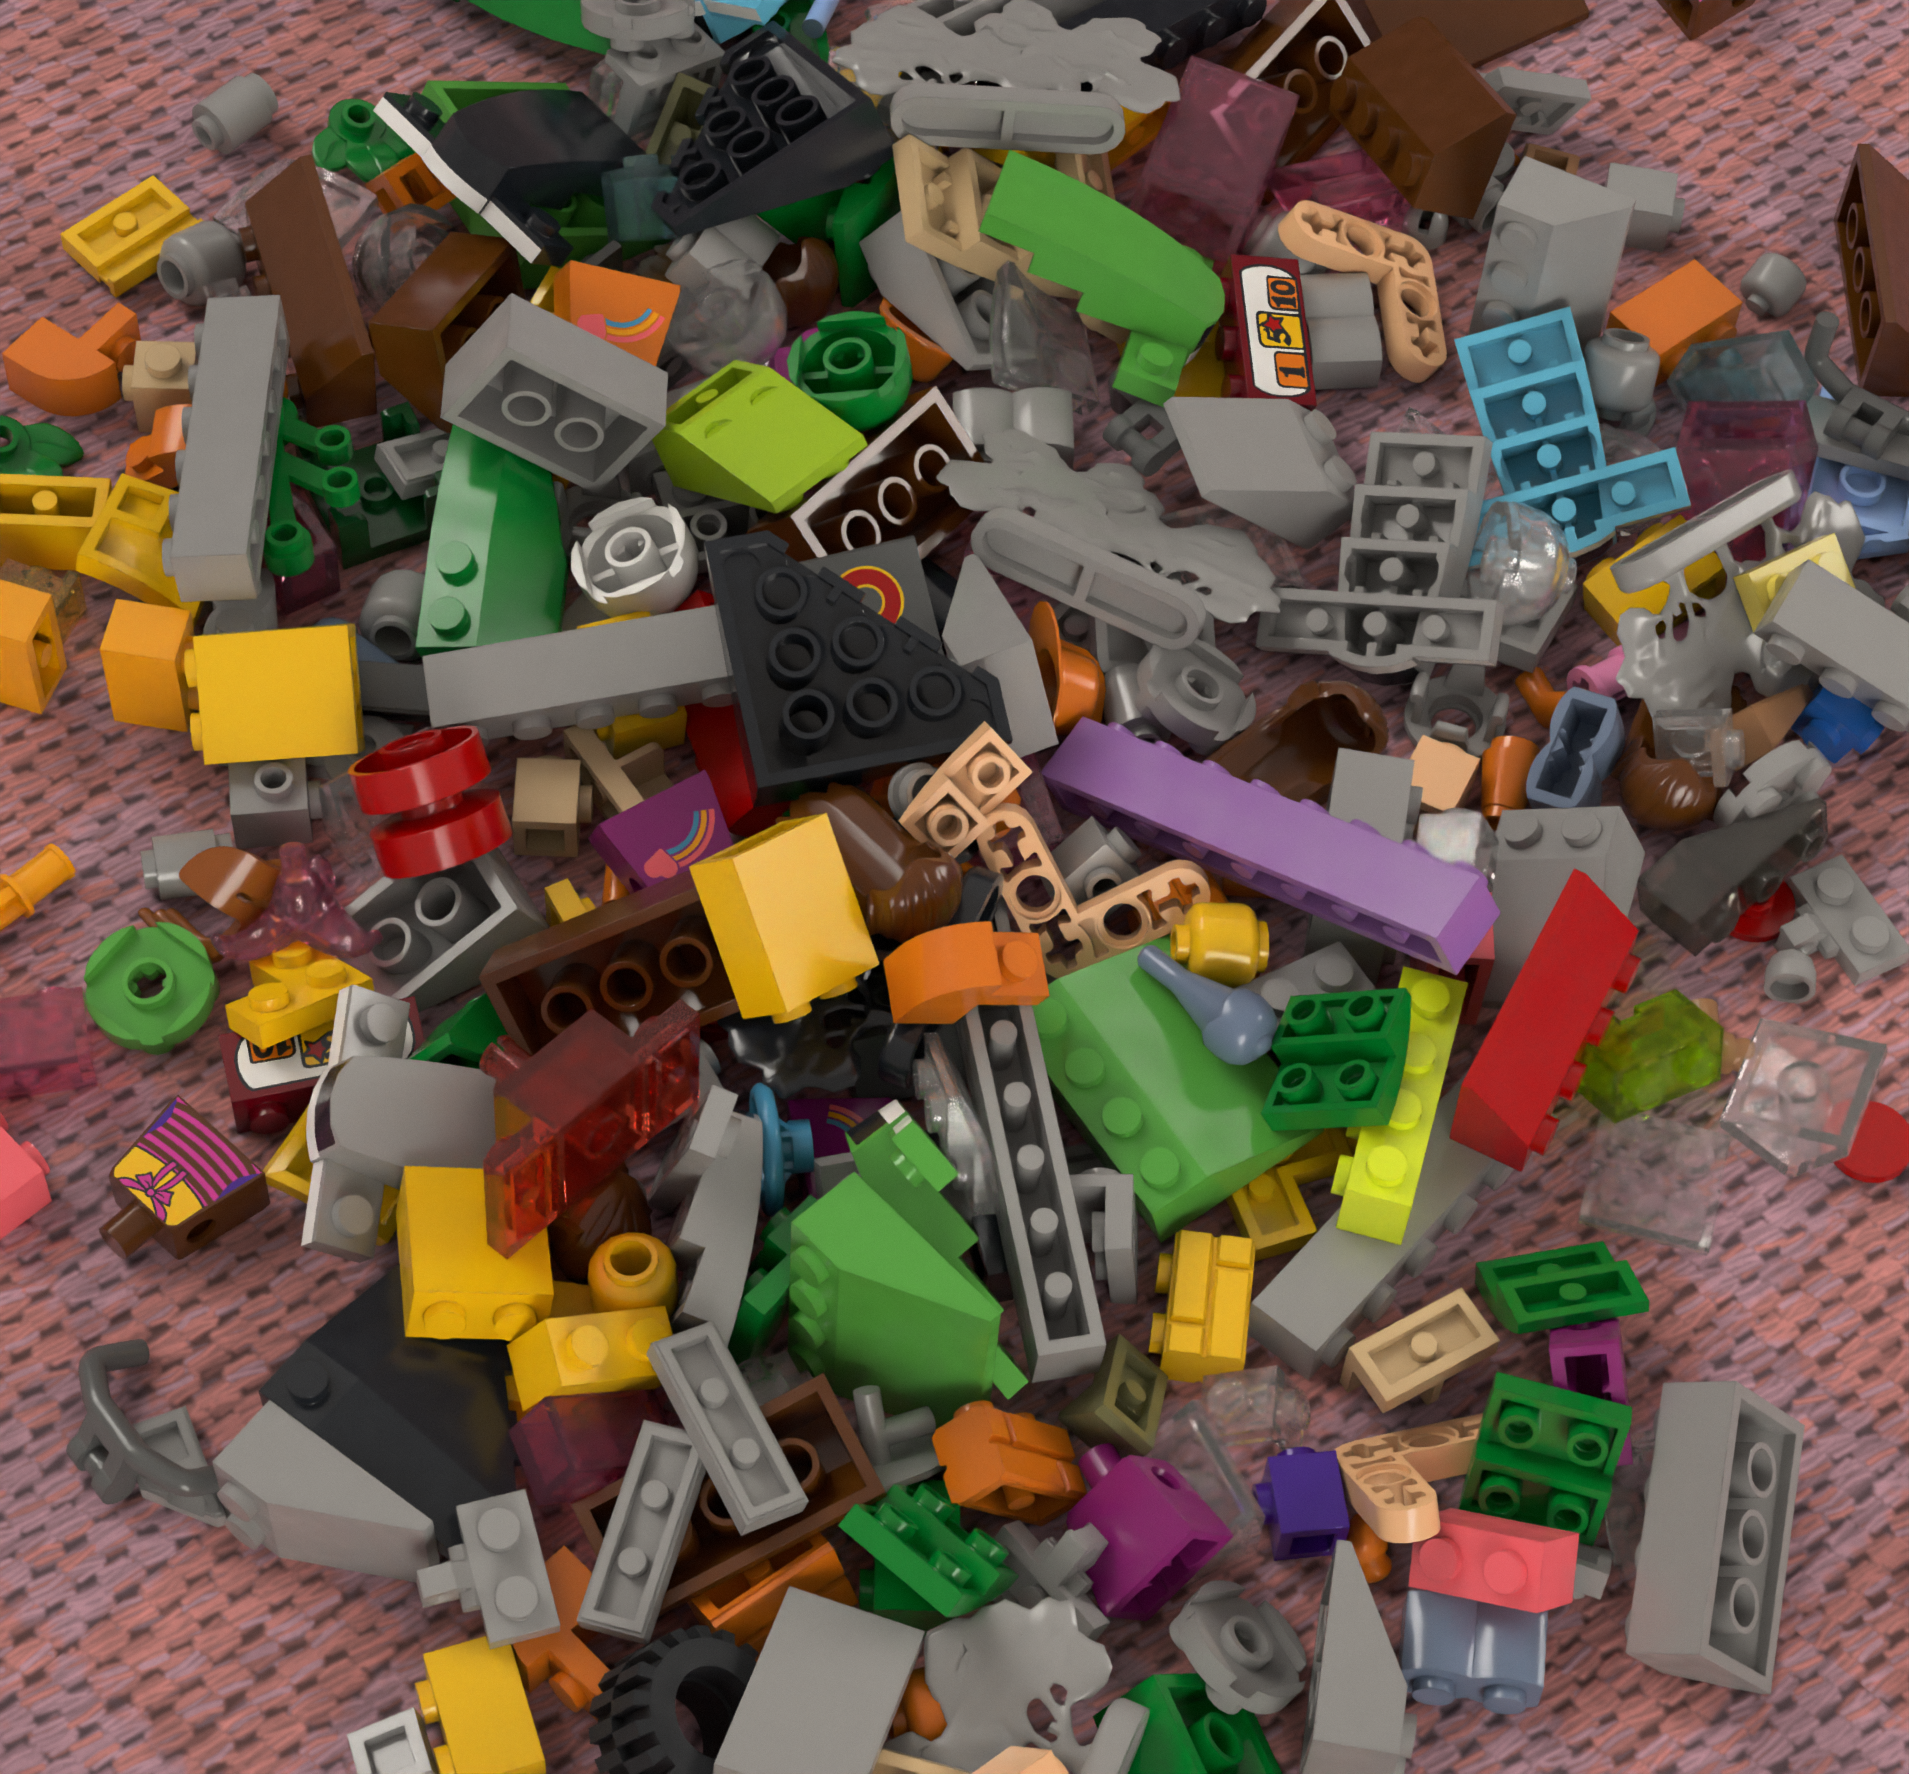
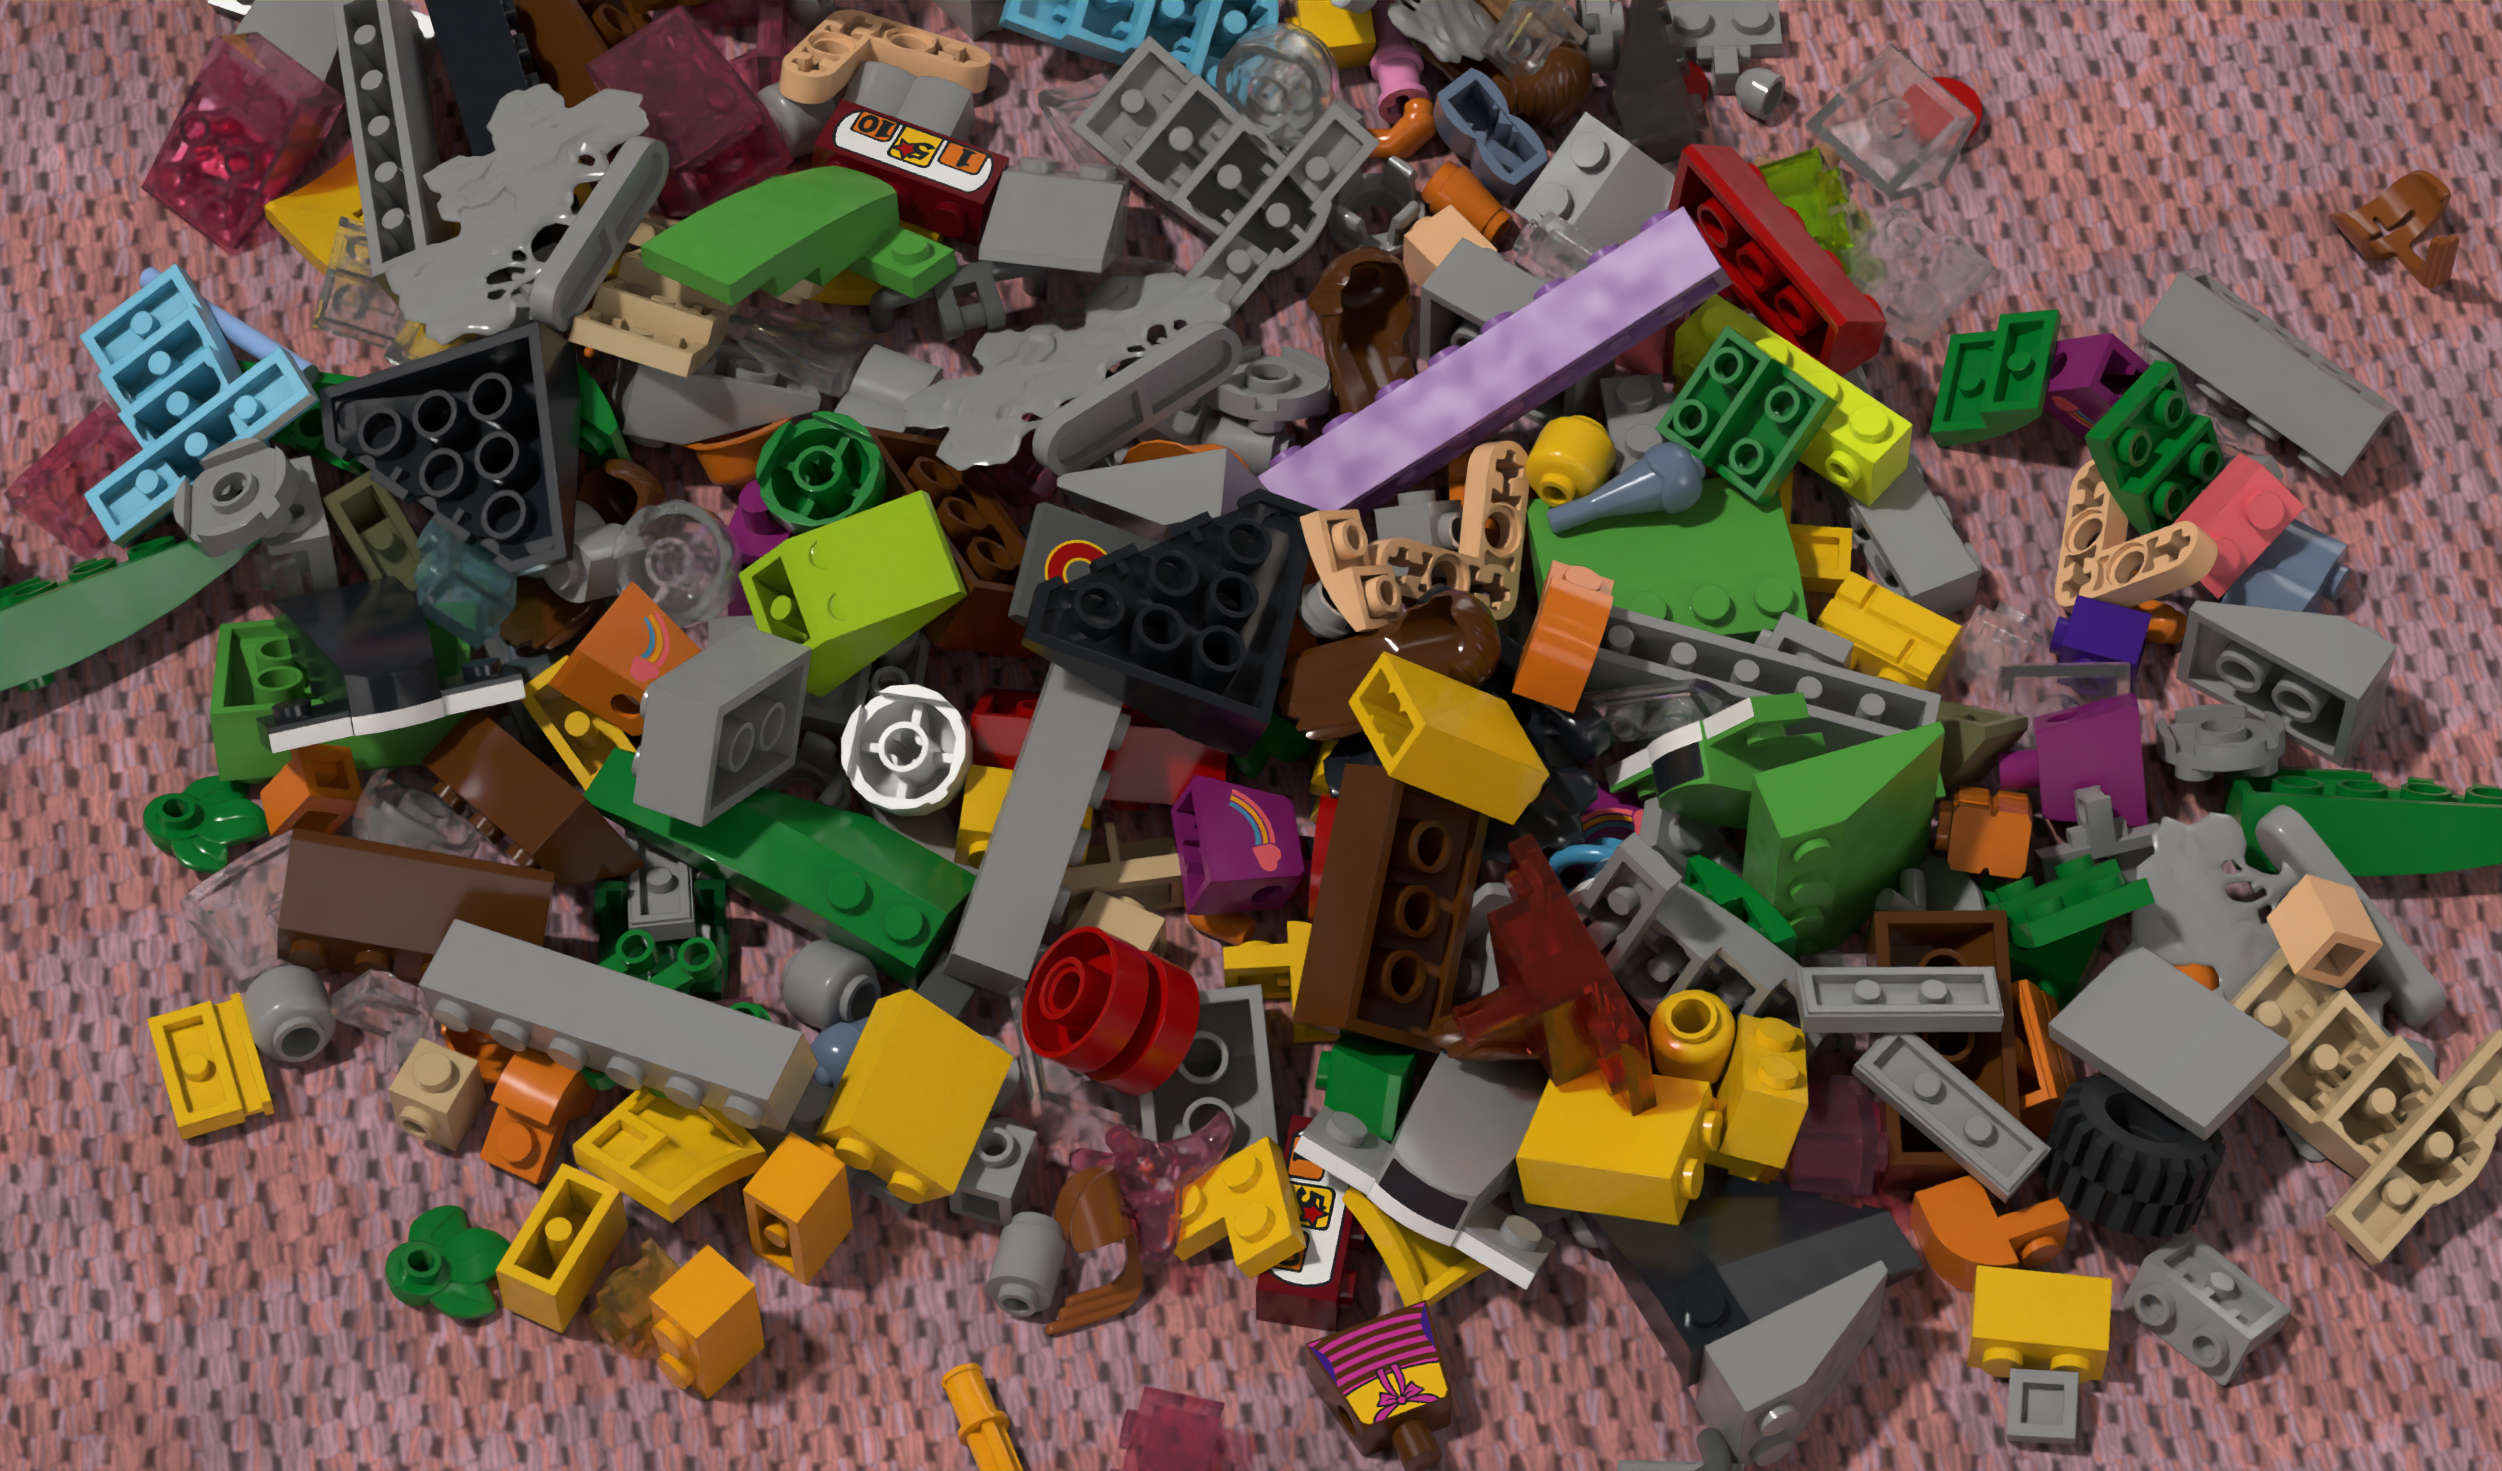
camera: 60 degrees left, 0 degrees up
(72, 373) = (361, 1181): orange brick -> none
(155, 1021) = (1164, 1306): bright green plate -> none
(234, 113) = (100, 921): light grey brick -> none
(496, 1571) = (1930, 1241): light grey hinge -> none
(1420, 1352) = (2008, 500): tan panel -> none

